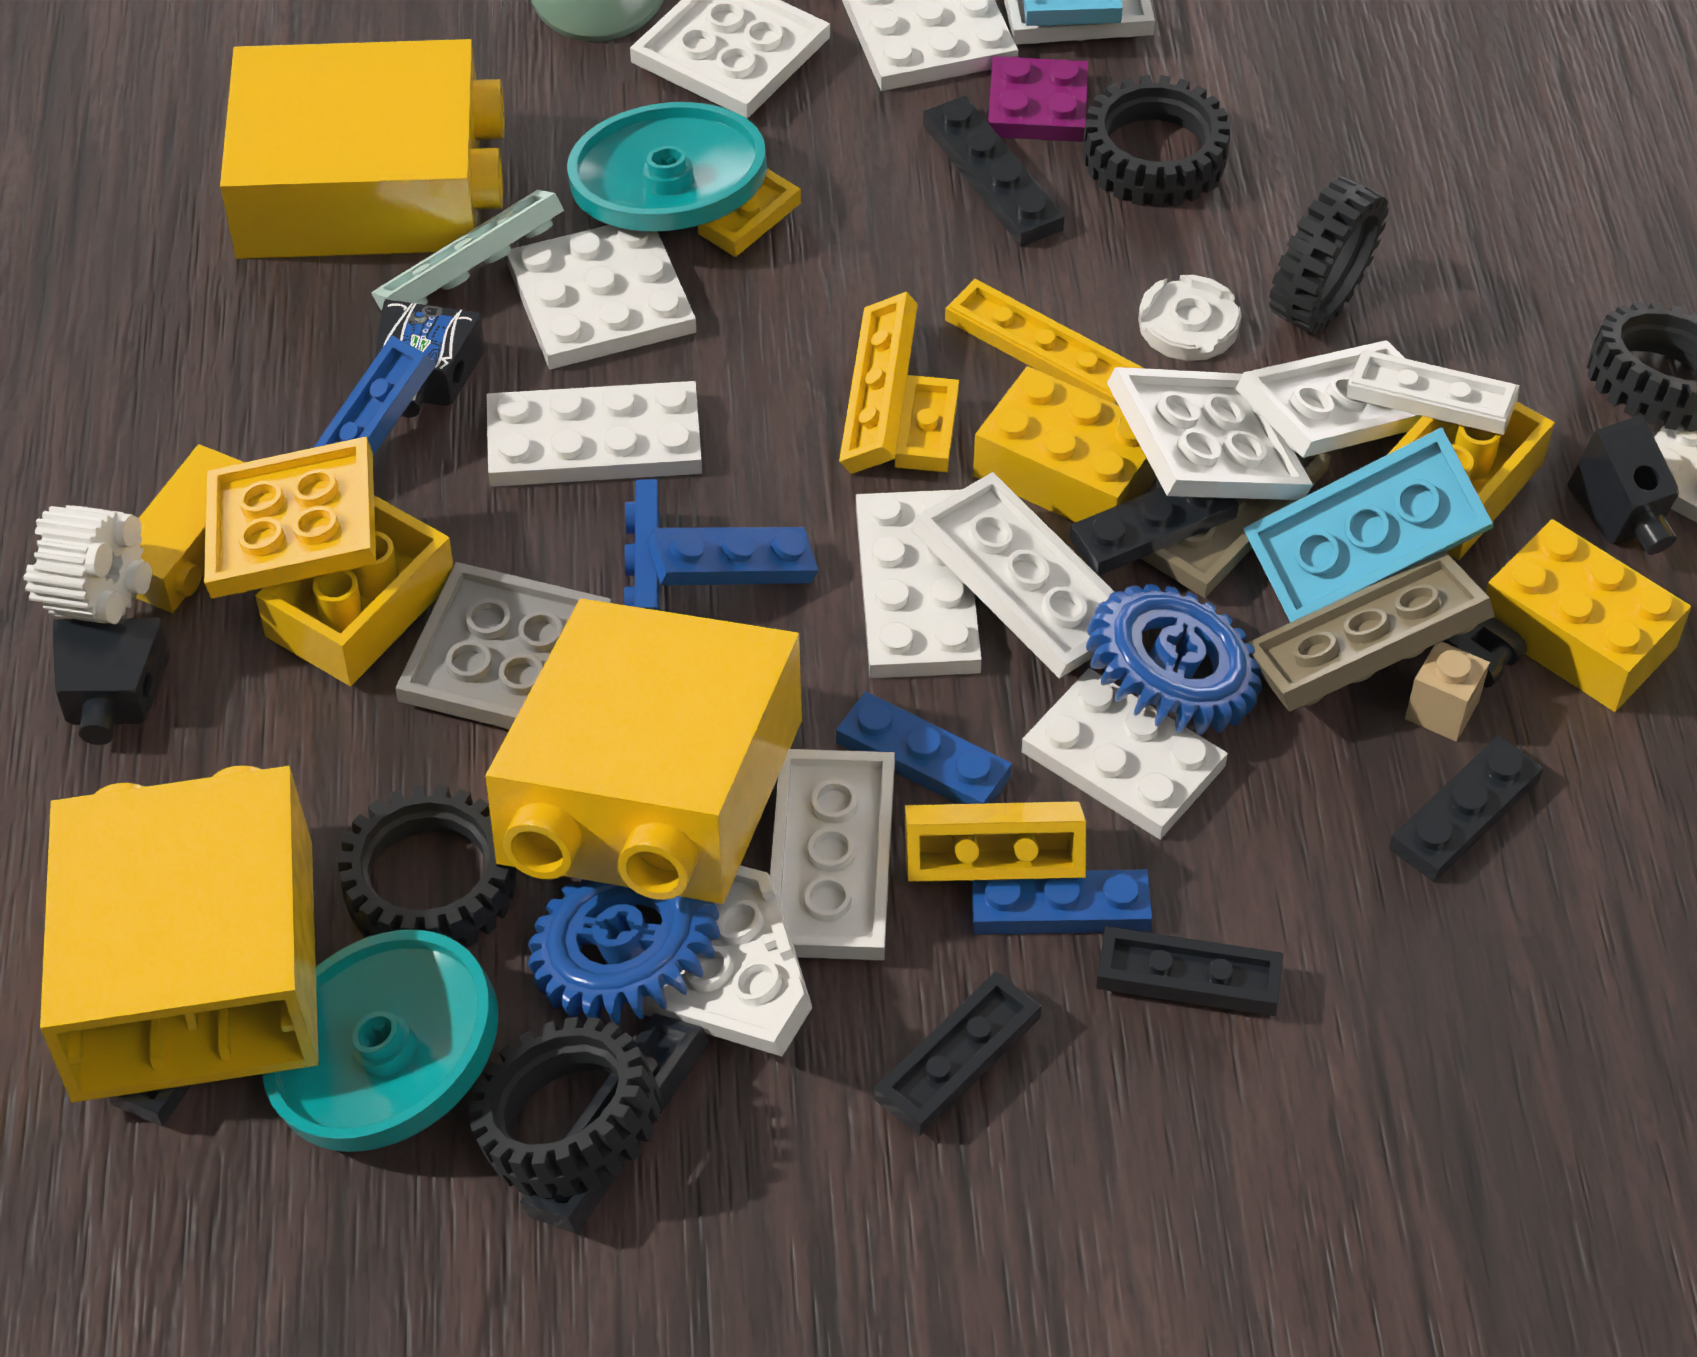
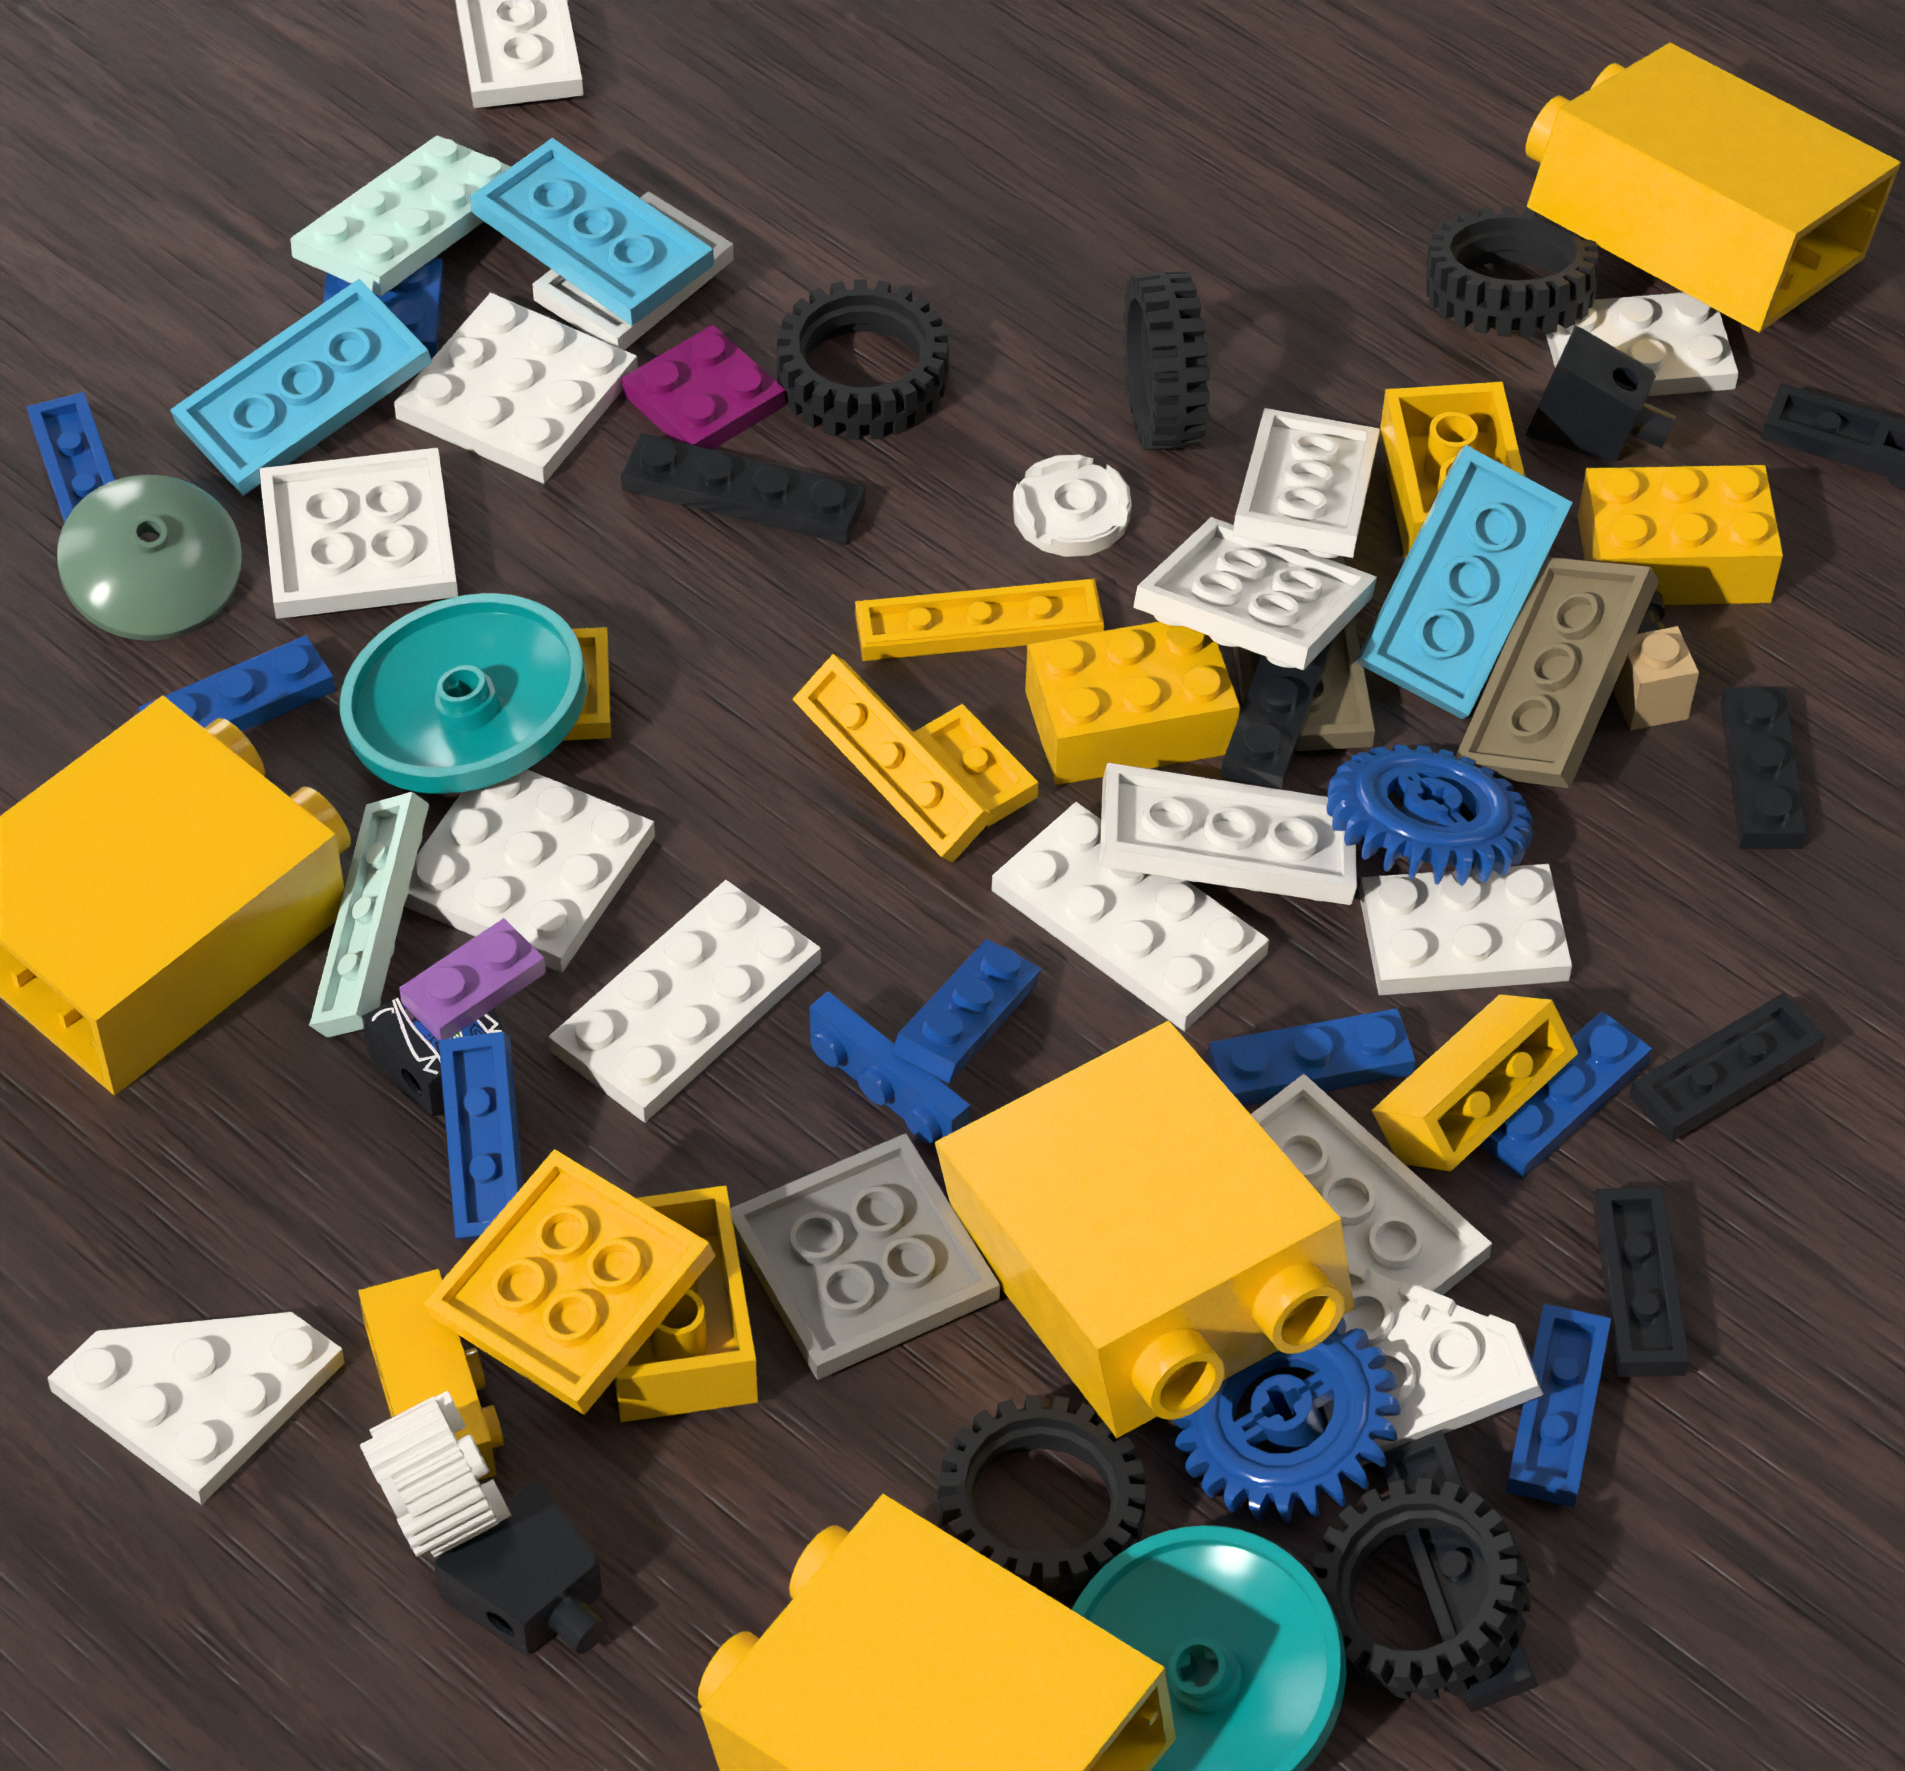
camera: 45 degrees left, 0 degrees up
(78, 443) = (197, 1392): none -> white plate
(462, 321) = (472, 980): none -> medium lavender plate
(560, 90) = (258, 687): none -> blue plate
(807, 1081) = (1558, 1424): none -> blue plate
(1433, 391) = (1387, 423): white tile -> none

